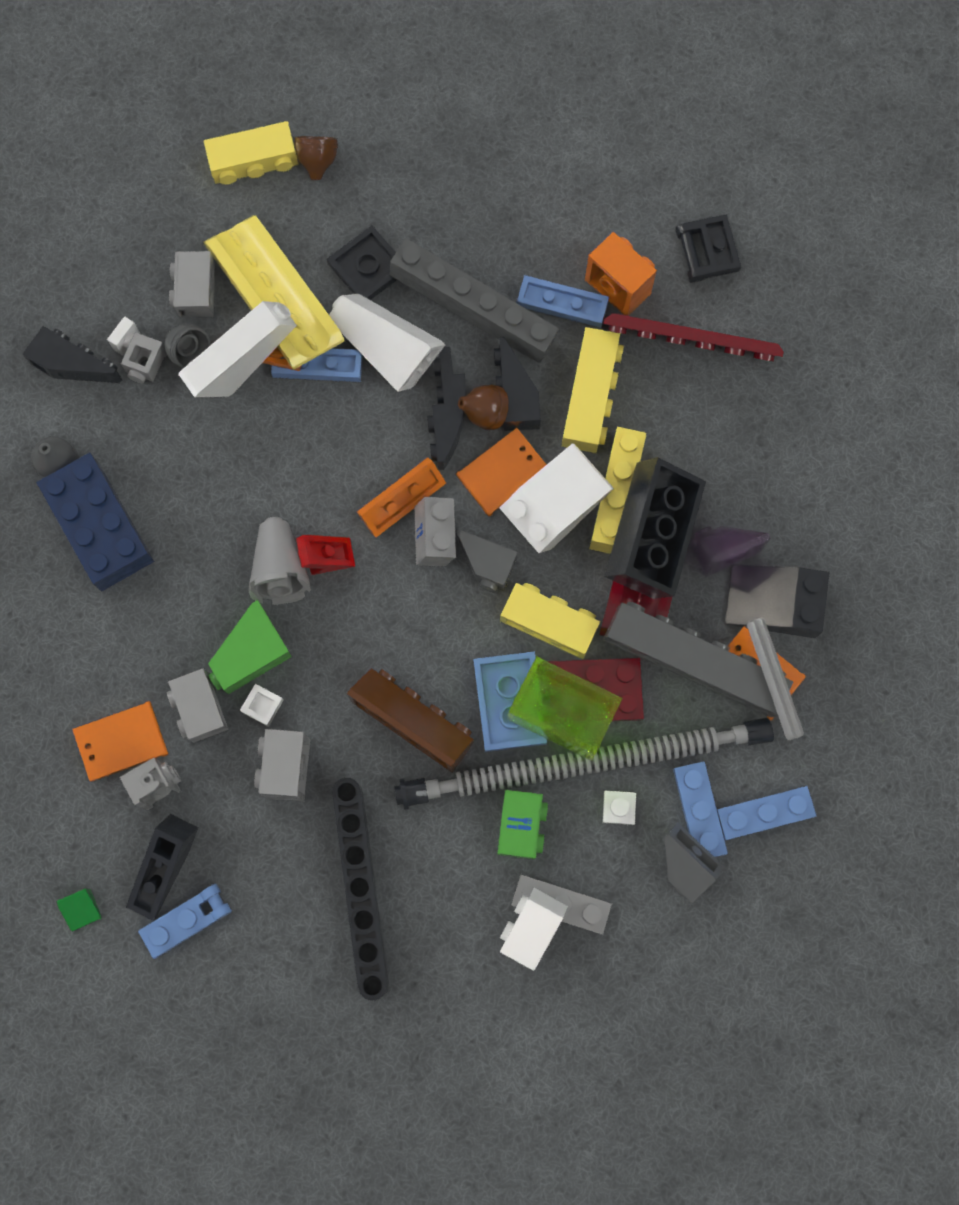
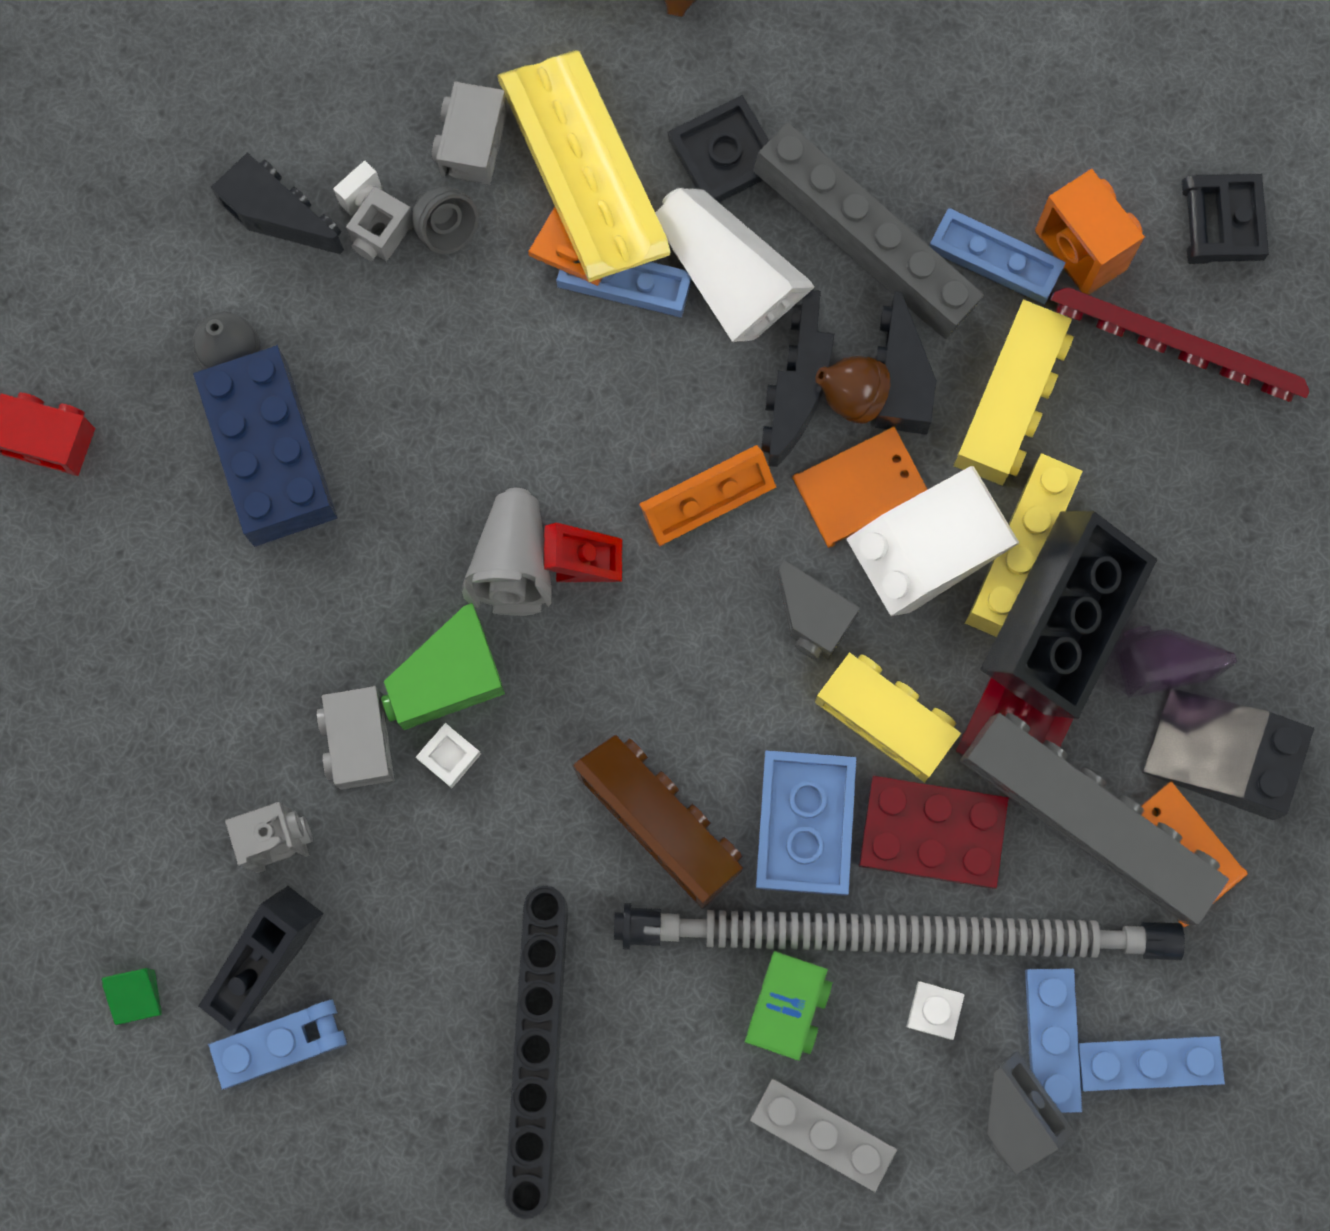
camera: 15 degrees right, 0 degrees up
(120, 741) = (237, 767): orange container -> none
(238, 351) = (515, 241): white slope -> none
(283, 765) = (461, 849): light grey brick -> none
(435, 531) = (746, 554): light grey brick -> none
(533, 929) = (775, 1163): white piece -> none
(564, 708) = (884, 851): clear neon green brick -> none
(775, 679) = (1203, 871): light grey axle -> none

